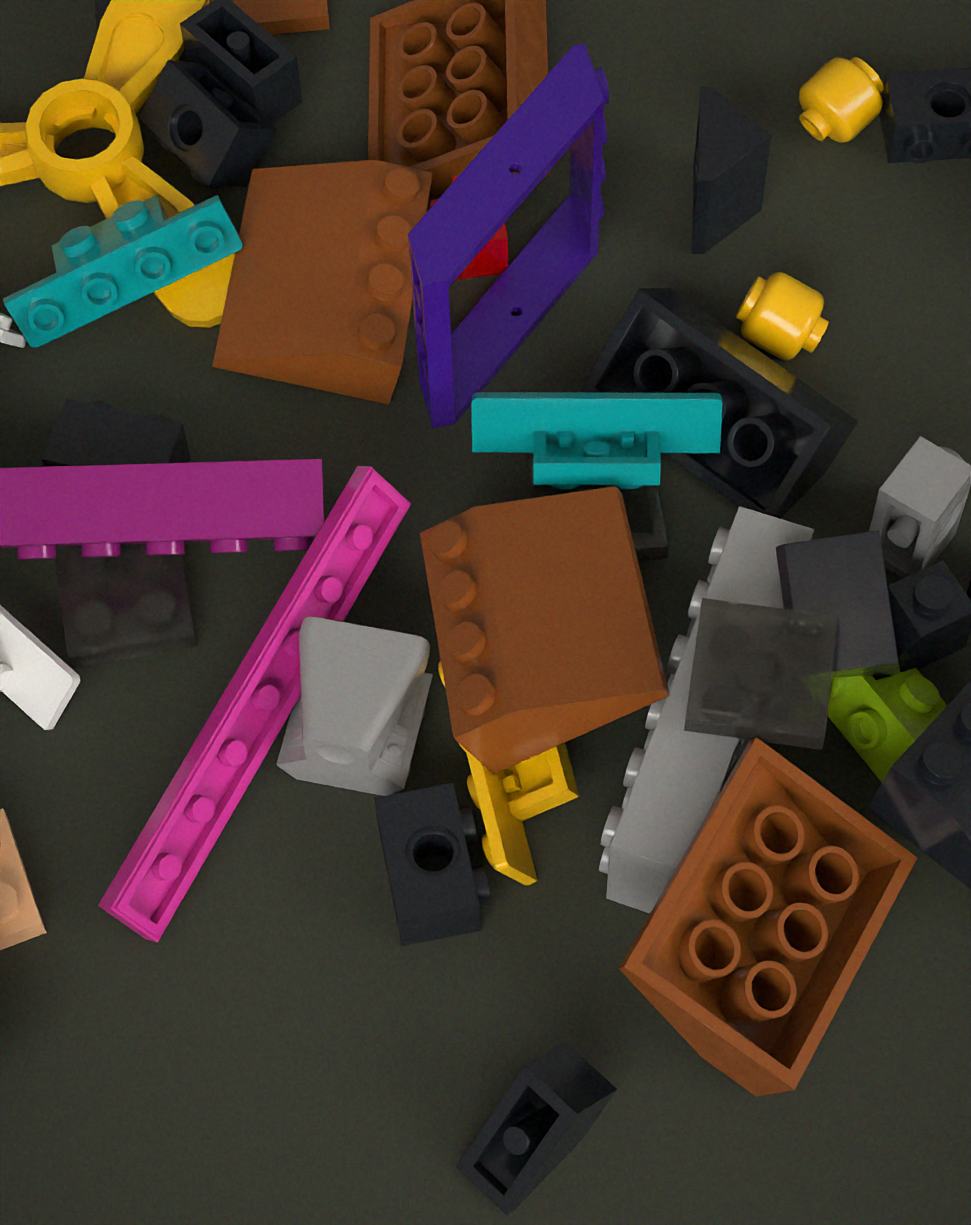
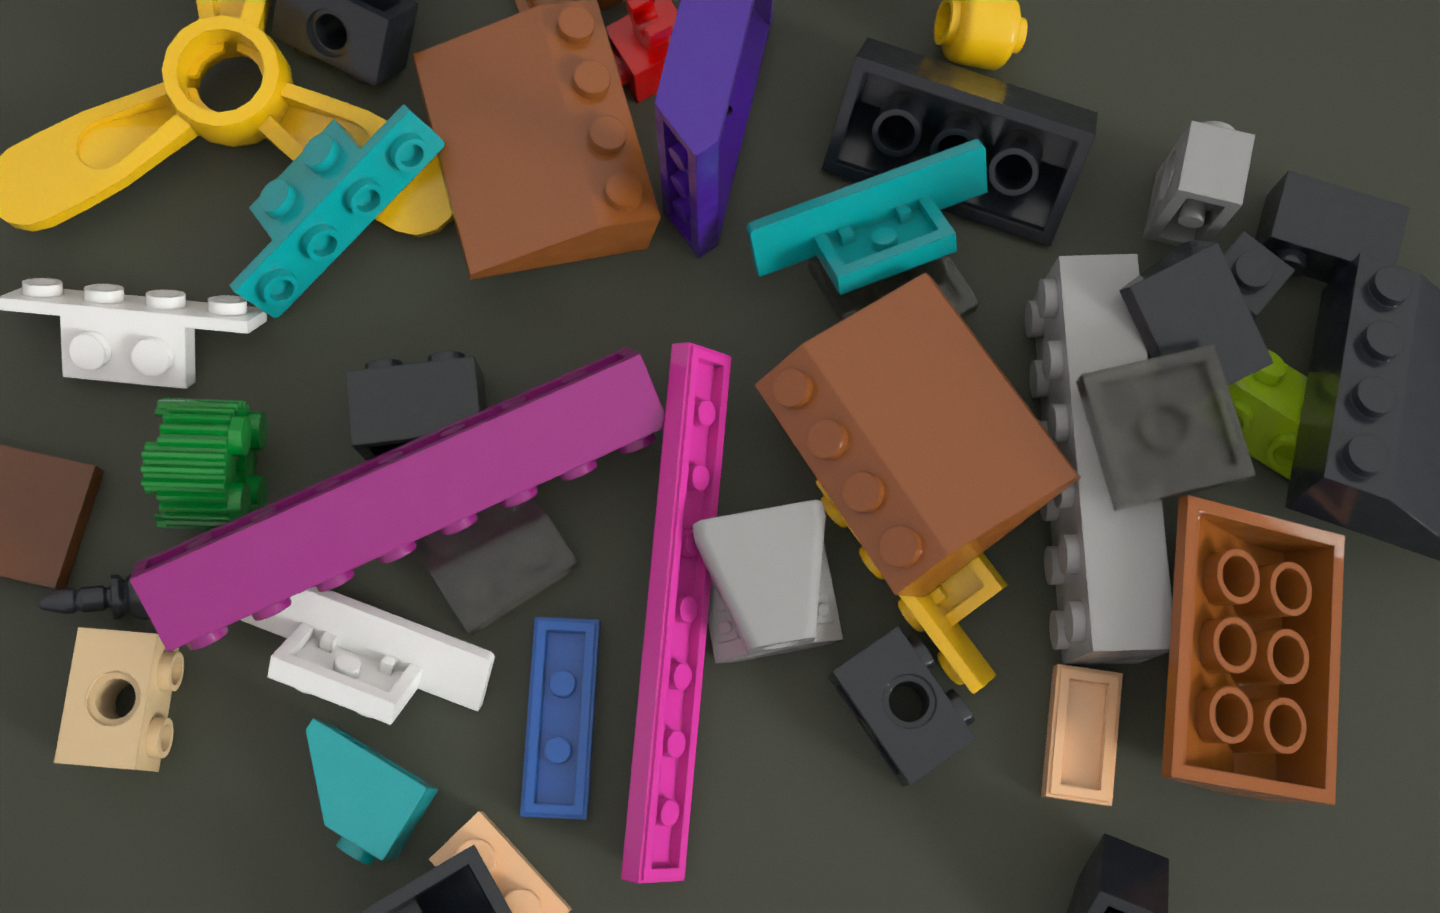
camera: 25 degrees left, 15 degrees up
(115, 764) = (560, 718): none -> blue tile
(586, 969) = (1082, 735): none -> light nougat tile

